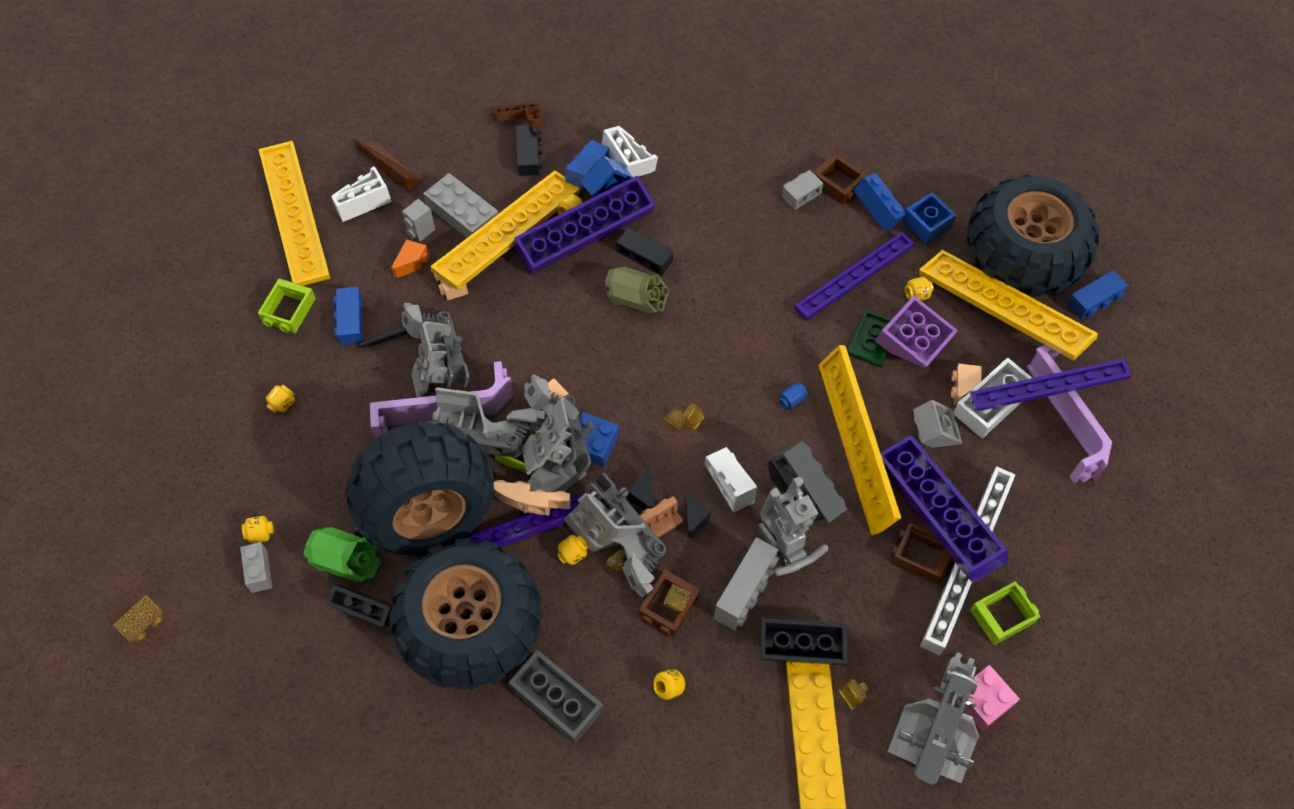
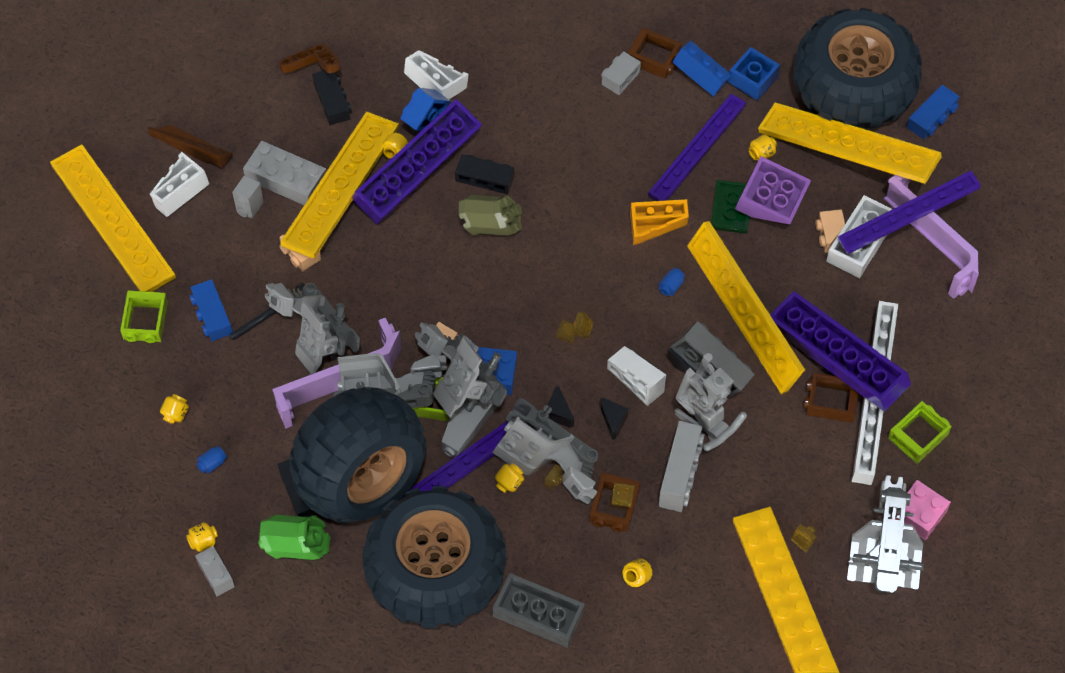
camera: 15 degrees left, 0 degrees up
(138, 619) = (120, 647): clear yellow bracket -> none
(295, 456) = (211, 459): none -> blue brick
(360, 605) = (329, 578): black brick -> none
(410, 259) = (252, 238): orange slope -> none
(522, 498) = (465, 441): light nougat slope -> none
(584, 162) = (397, 97): blue brick -> none
(662, 517) = (585, 425): nougat bracket -> none
(796, 331) = (657, 218): none -> light orange wedge
(803, 641) = (746, 503): black slope -> none
(936, 425) = (814, 276): light grey slope -> none

